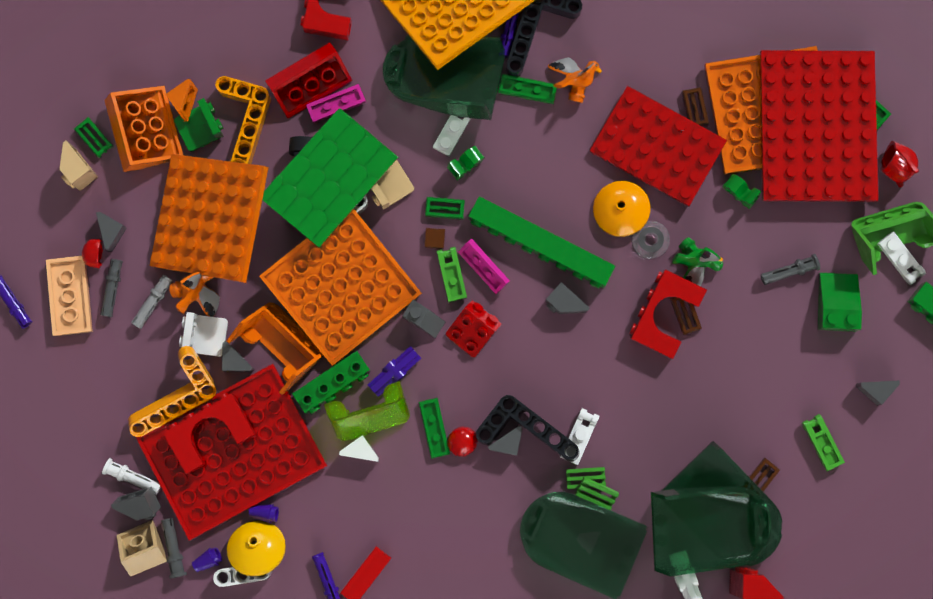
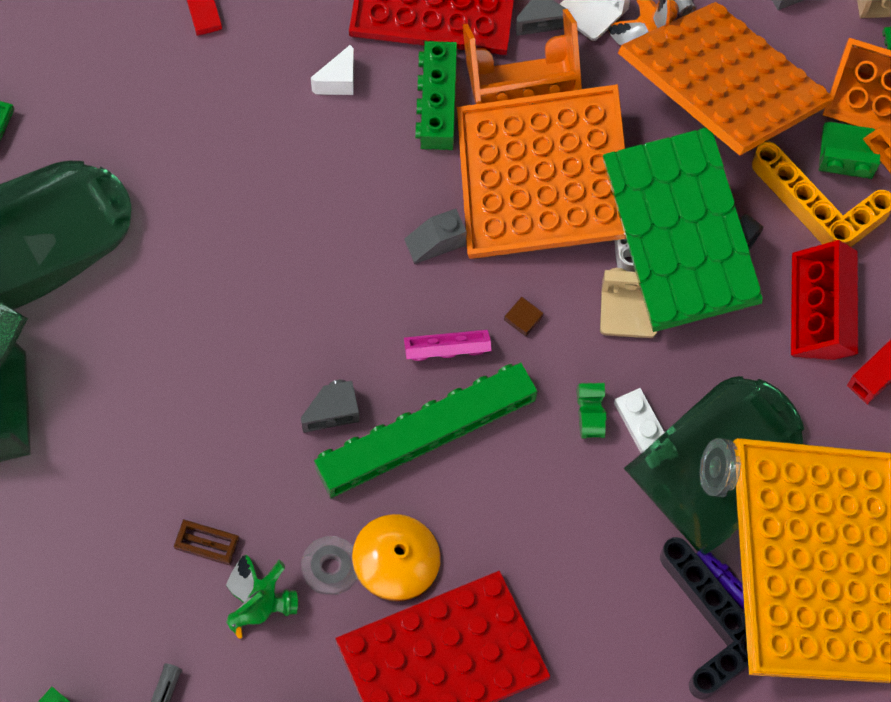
camera: 125 degrees right, 15 degrees down
(329, 105) = (773, 315): dark pink plate -> none
(371, 419) = (360, 127): clear neon green windscreen -> none
(394, 371) = (399, 167): dark purple piece -> none
(434, 428) = (301, 169): green tile -> none
(444, 208) = (538, 369): green tile -> none
(452, 275) = (465, 303): bright green plate -> none
(455, 69) = (719, 467): none -> clear tile
(462, 441) = (262, 187): red hair -> none
(473, 328) = (383, 285): red bracket -> none
(509, 443) = (217, 229): dark grey slope -> none
(527, 88) = (634, 553): green tile -> none
(529, 425) = (217, 261): black beam -> none
(569, 479) = (103, 282): bright green tile -> none
(575, 76) = (609, 619): orange animal -> none
(581, 434) = (162, 314): white plate -> none
(611, 501) = (81, 283): bright green tile -> none
(667, 286) = (221, 475): red arch -> none

